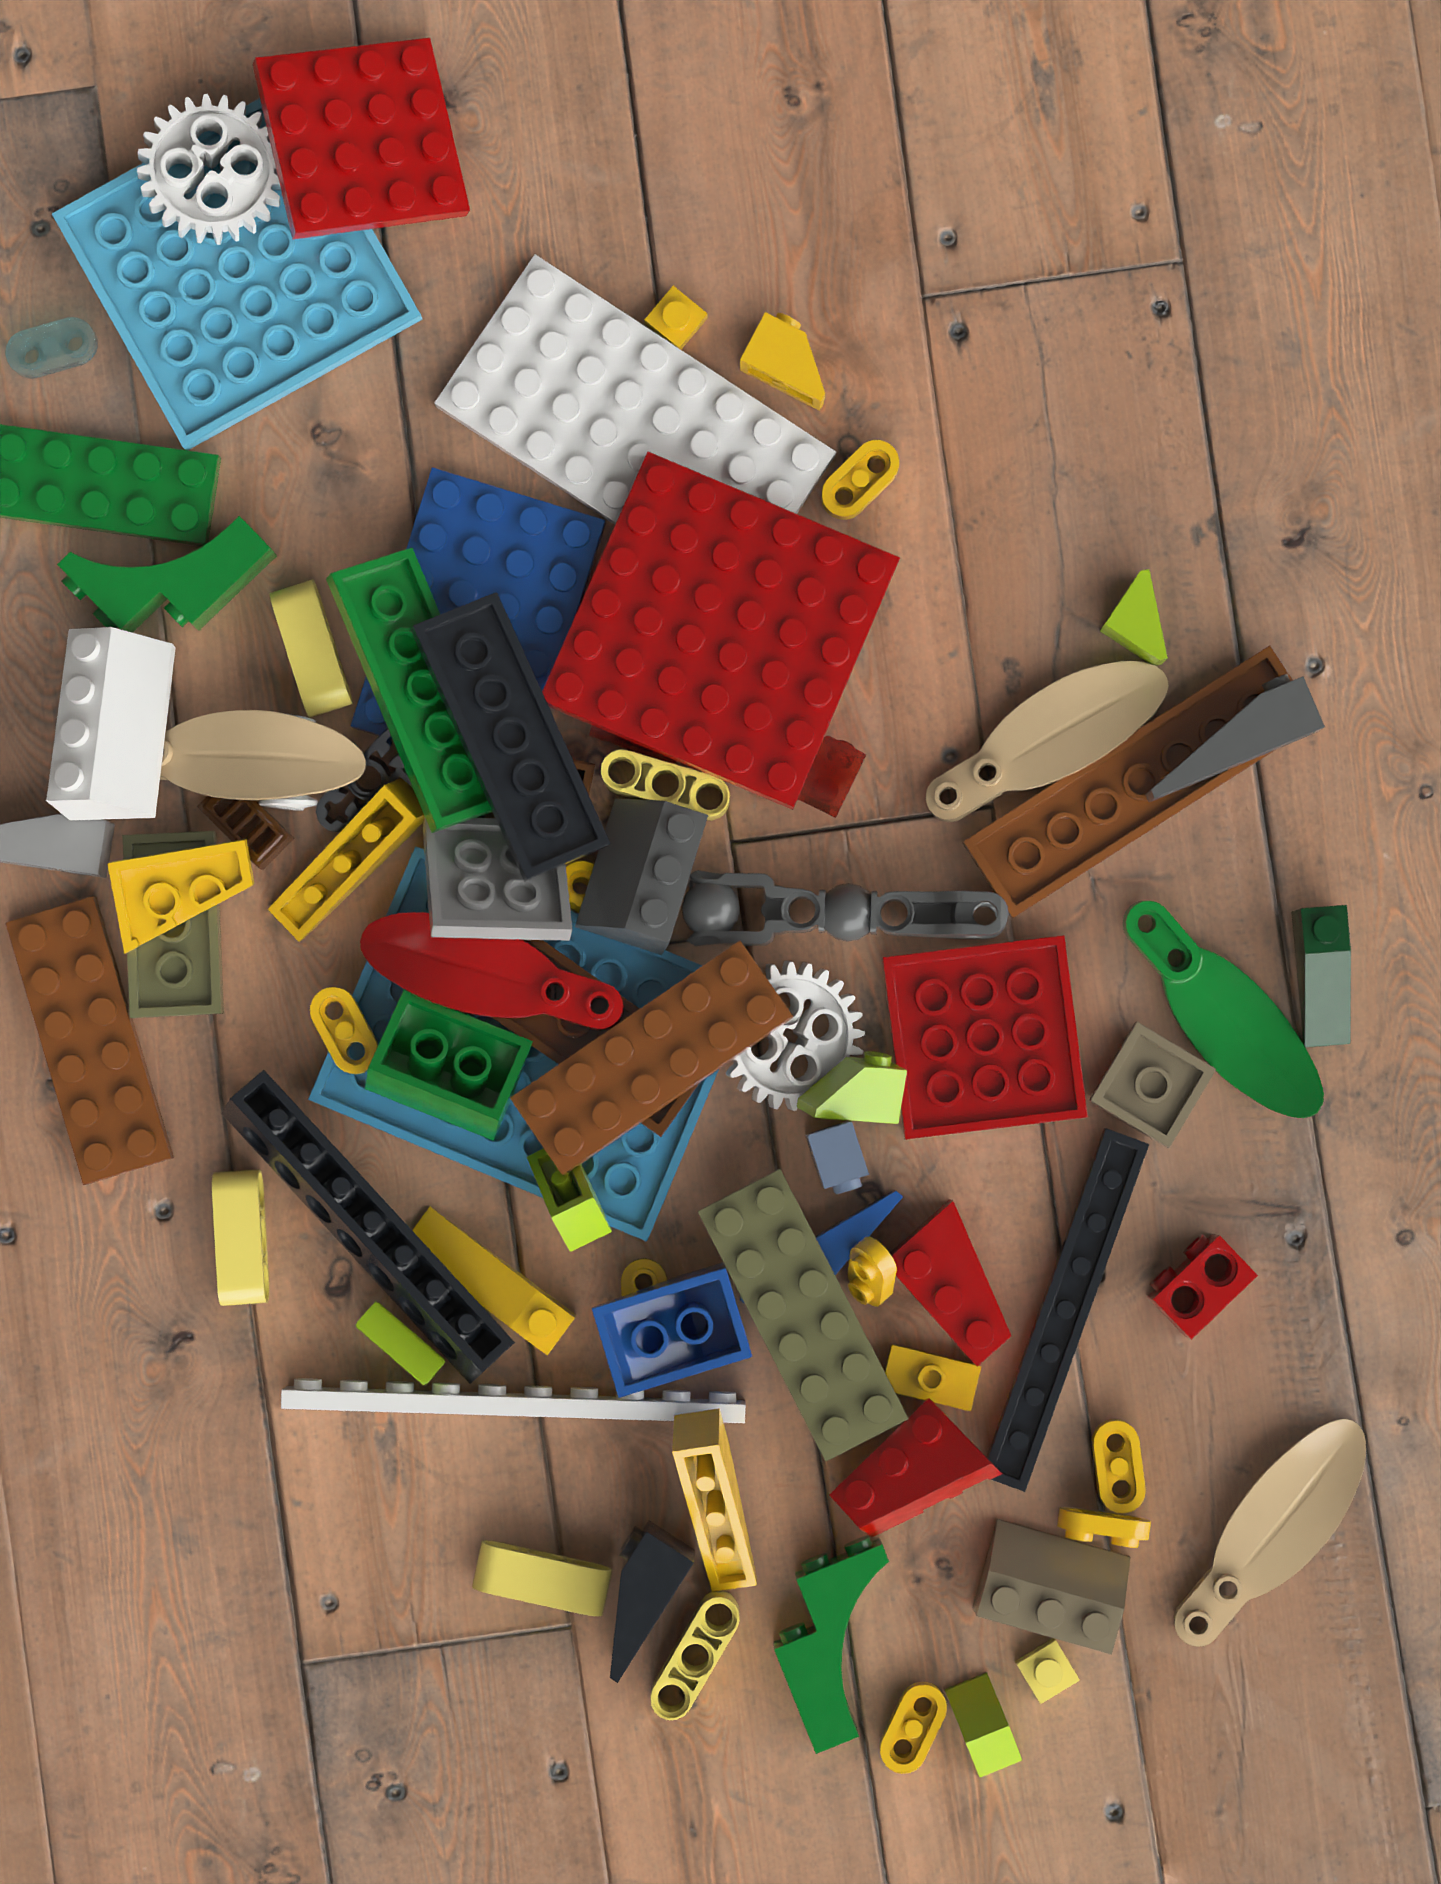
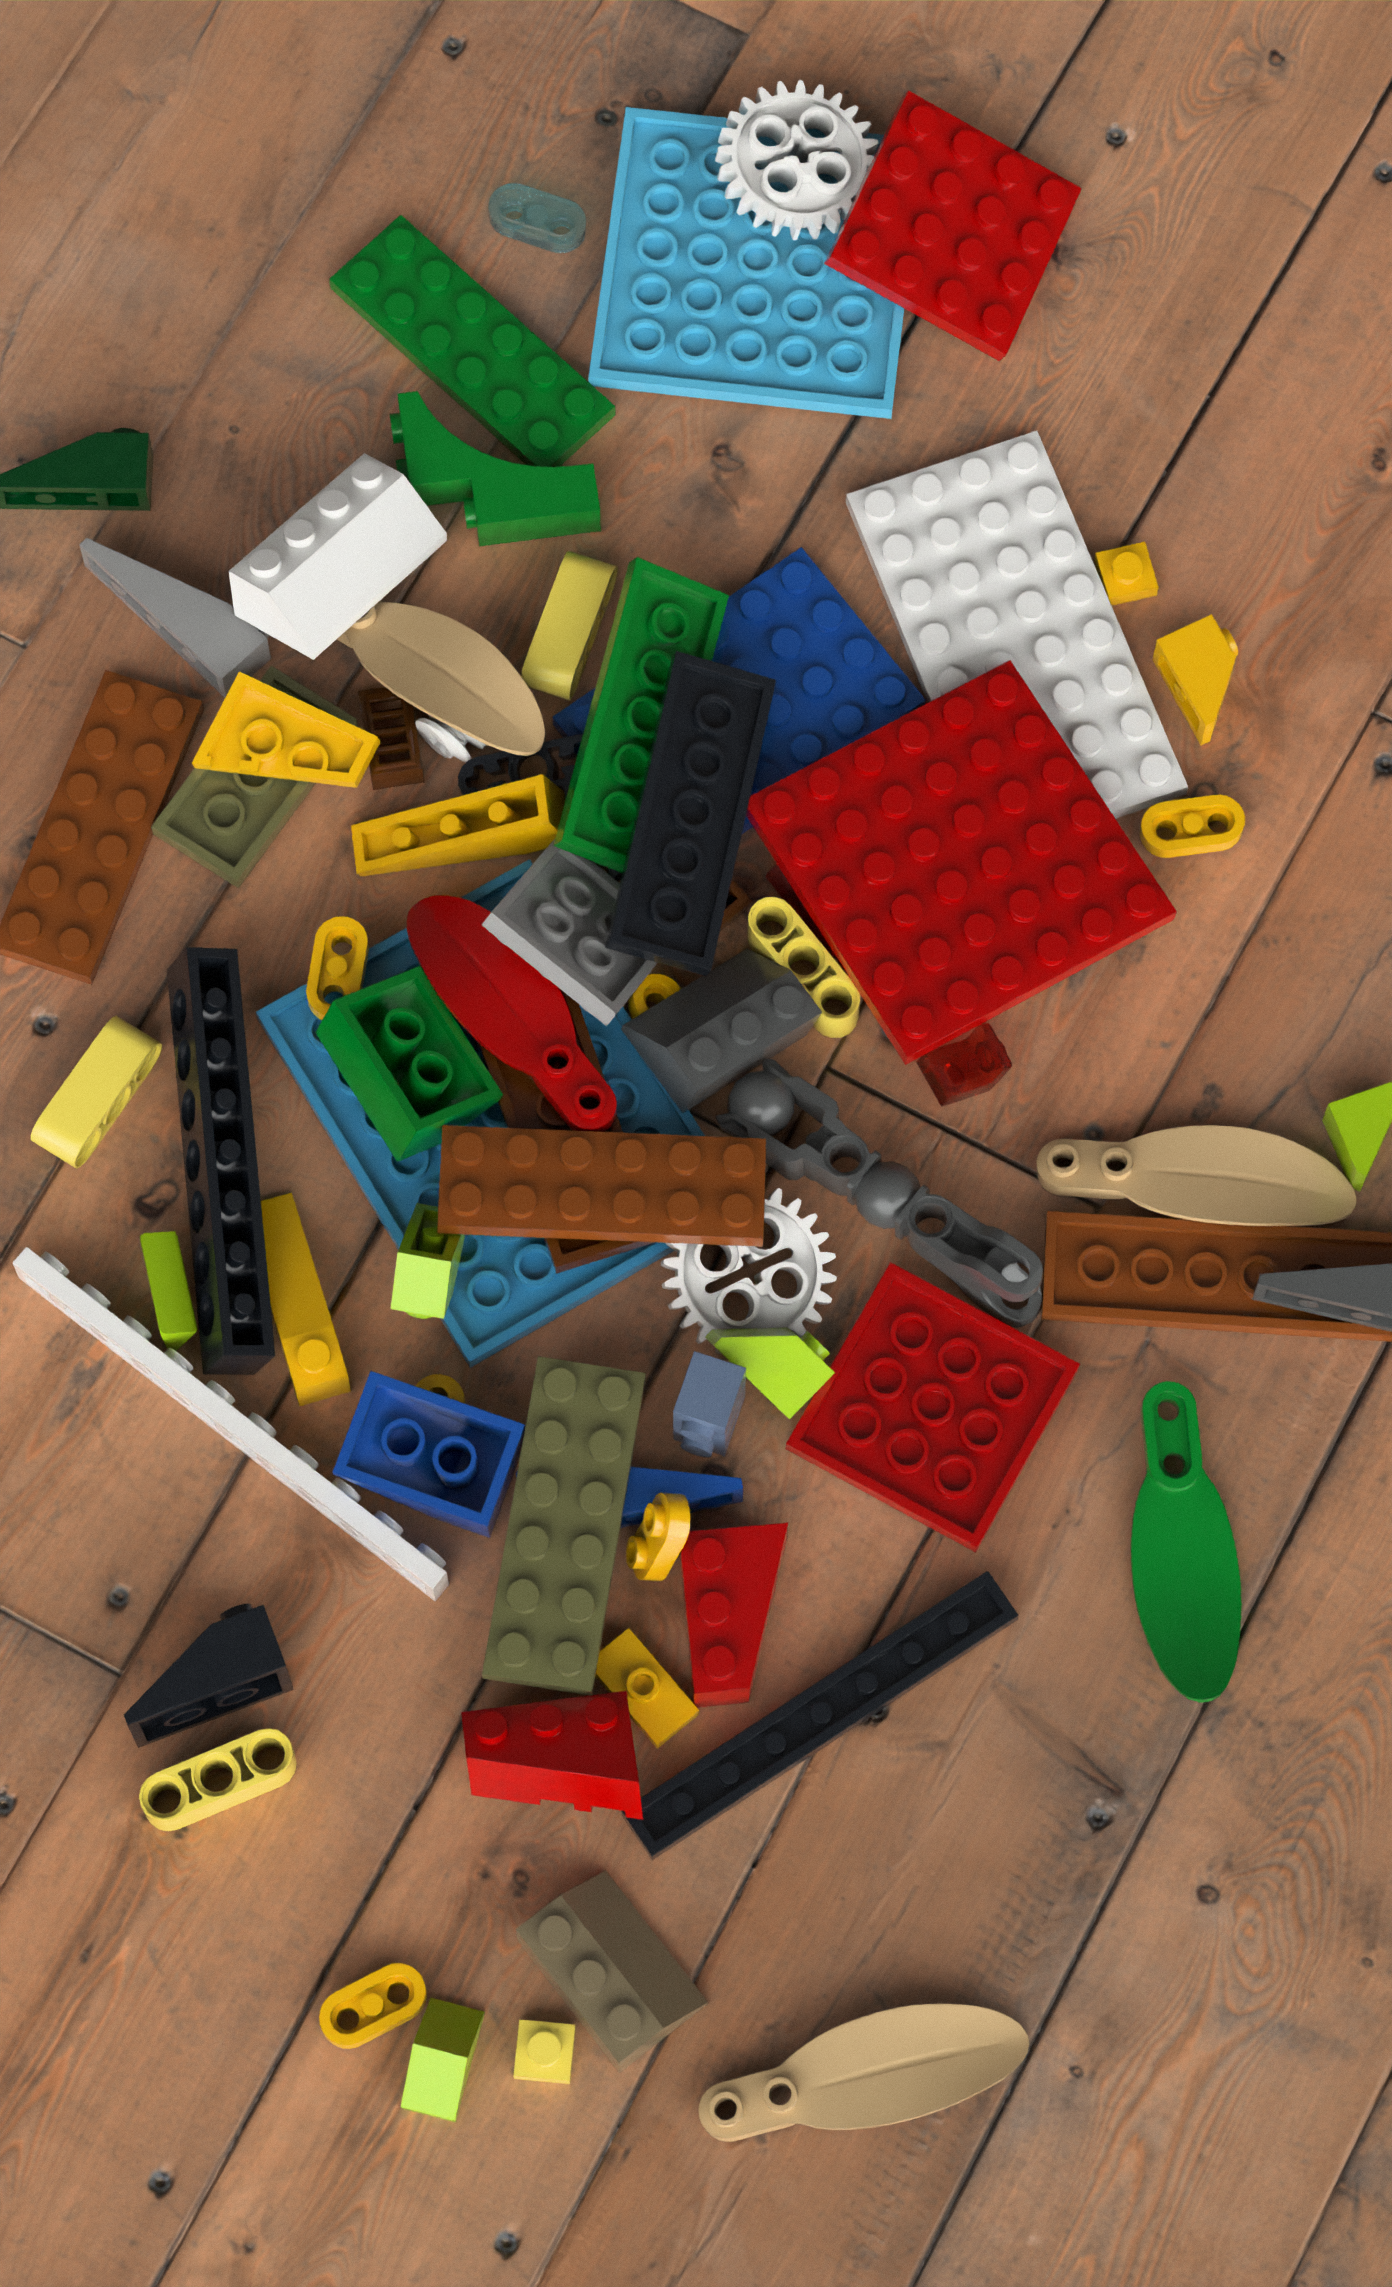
camera: 35 degrees right, 15 degrees down
(542, 1578) = (128, 1601): light yellow beam -> none
(713, 1498) = (348, 1638): yellow slope -> none
(814, 1654) = (330, 1865): green arch -> none
(1118, 1465) = (759, 1902): yellow plate -> none
(1123, 1529) = (686, 1930): yellow plate -> none
(1152, 1084) = (1063, 1565): dark tan plate -> none
(1208, 1294) = (974, 1800): red brick -> none
(1323, 974) = (1307, 1579): slope -> none

